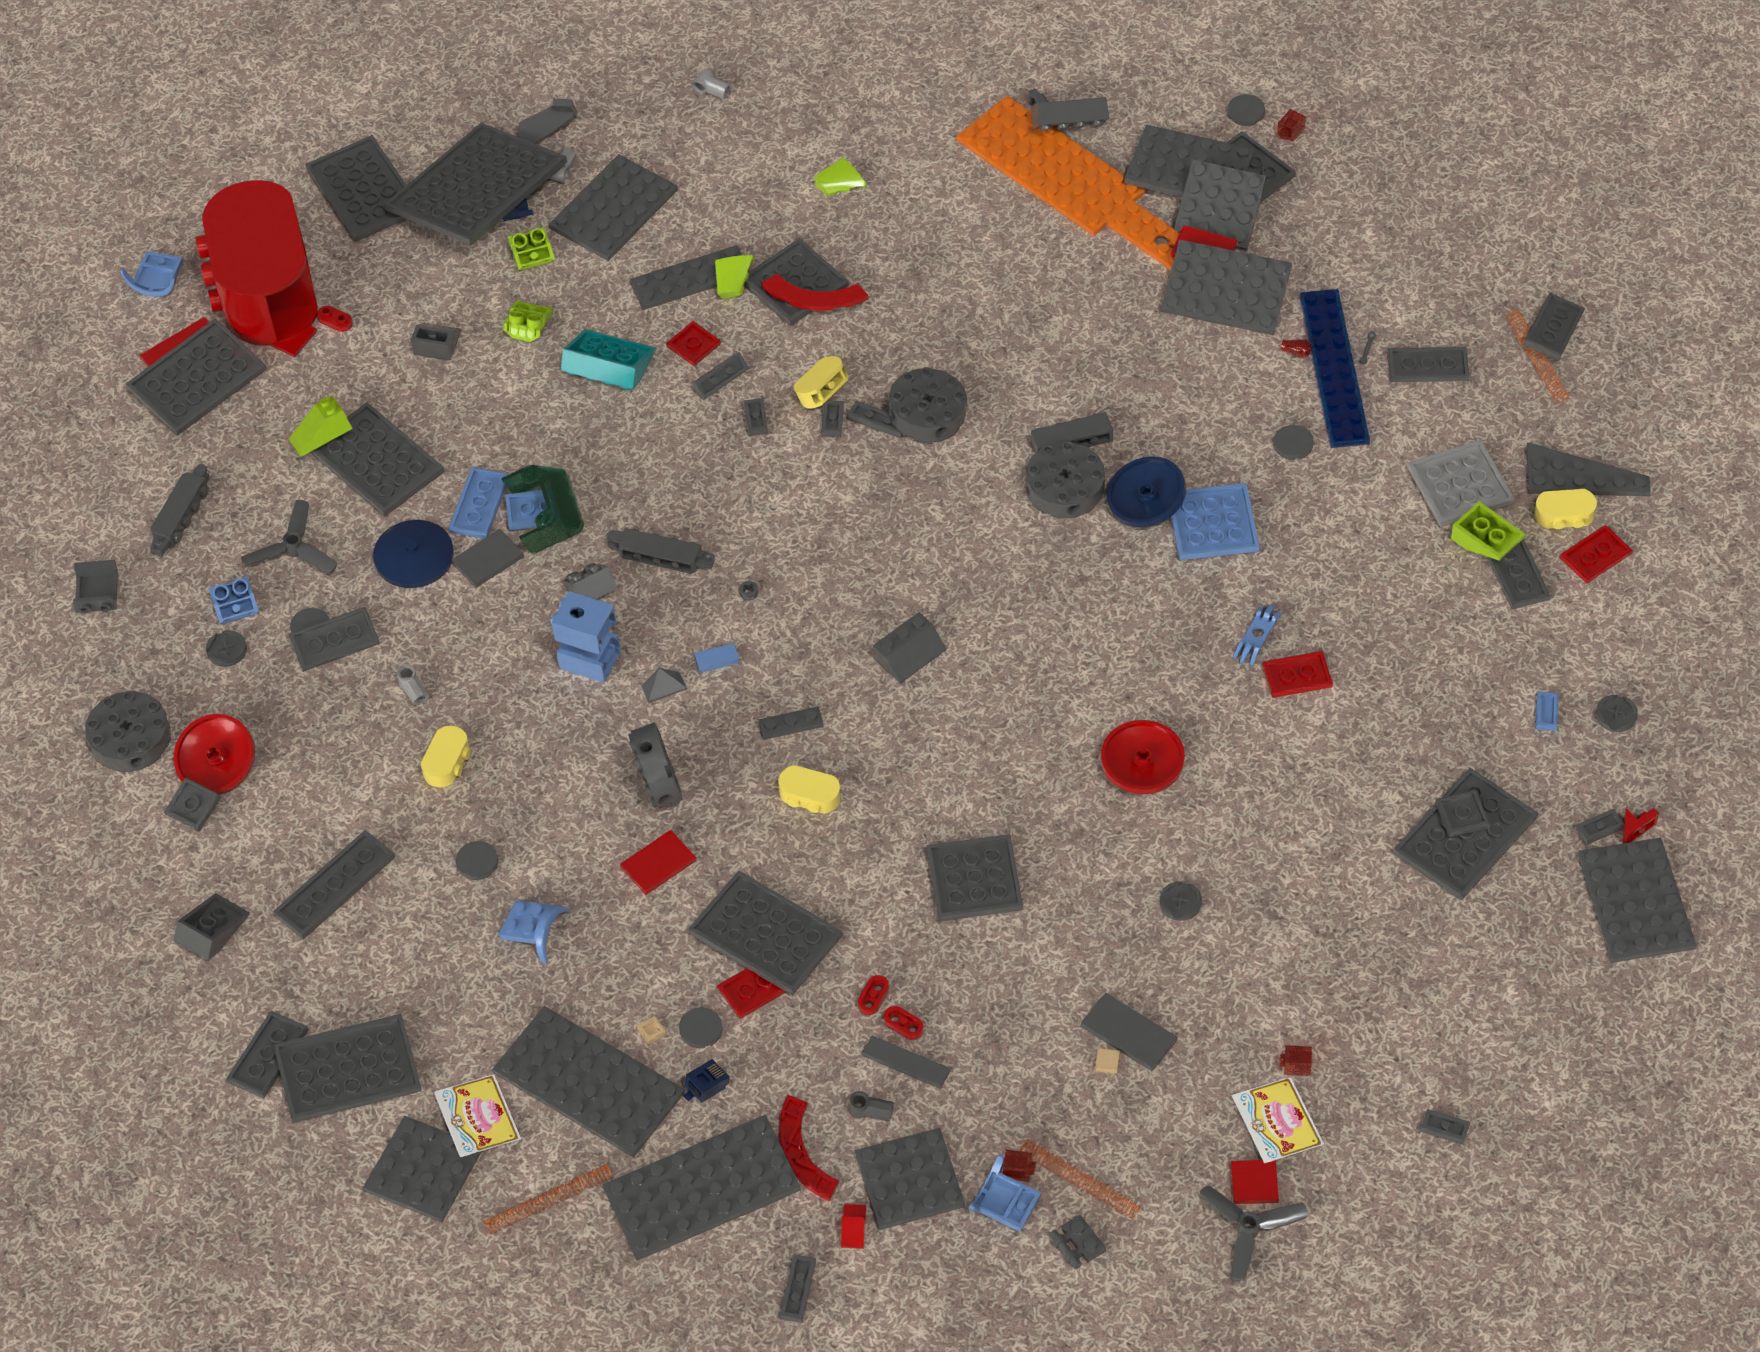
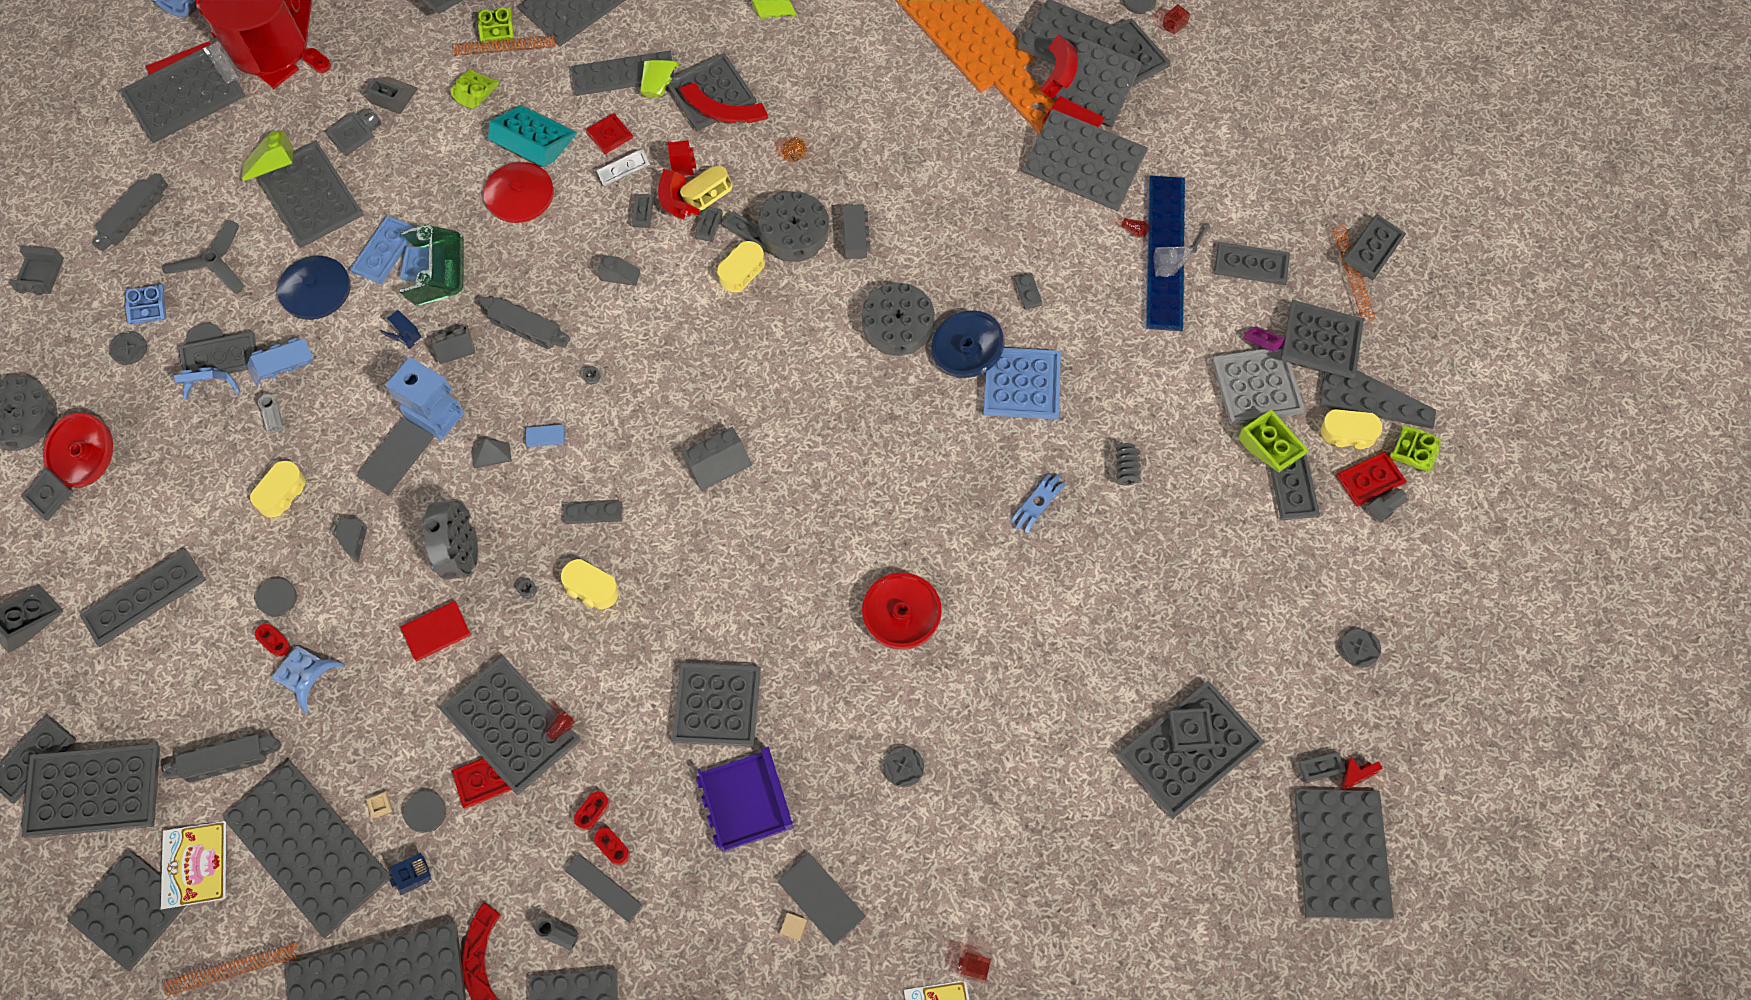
camera: 10 degrees right, 10 degrees up
(236, 335) = (222, 62): none -> clear slope
(321, 657) = (191, 377): none -> medium blue piece
(404, 630) = (279, 360): none -> medium blue wedge
(405, 385) = (354, 130): none -> dark grey plate
(473, 1015) = (221, 758): none -> dark grey hinge
(487, 558) = (375, 303): dark grey tile -> none
(489, 899) = (273, 640): none -> red plate
(492, 281) = (456, 45): none -> orange piece
(529, 578) = (404, 328): none -> dark blue piece
(539, 788) = (351, 536): none -> dark grey slope
(560, 705) = (395, 456): none -> dark grey tile
(610, 420) = (518, 192): none -> red dish
(743, 812) = (533, 590): none -> dark grey bush
(747, 481) = (618, 270): none -> dark grey slope
(782, 394) = (670, 196): none -> red arch
(785, 355) = (681, 157): none -> red brick
(821, 920) = (560, 725): none -> clear red cone
(880, 455) = (741, 266): none -> light yellow brick
(905, 327) = (794, 149): none -> clear orange head
(995, 400) = (856, 231): none -> dark grey brick
(1028, 958) = (744, 801): none -> dark purple panel
(1084, 431) = (921, 275): dark grey brick -> none
(1183, 197) = (1064, 69): none -> red arch
(1196, 430) = (1028, 291): none -> dark grey plate
(1293, 442) = (1113, 317): dark grey tile -> none
(1297, 674) = (1066, 550): red tile -> none
(1341, 373) = (1170, 259): none -> clear slope
(1342, 580) = (1127, 464): none -> dark grey piece
(1457, 435) = (1264, 338): none -> magenta plate
(1518, 426) = (1322, 339): none -> dark grey plate
(1547, 711) = (1293, 633): medium blue tile -> none
(1614, 578) = (1384, 507): none -> dark grey piece
(1637, 516) = (1416, 449): none -> lime slope

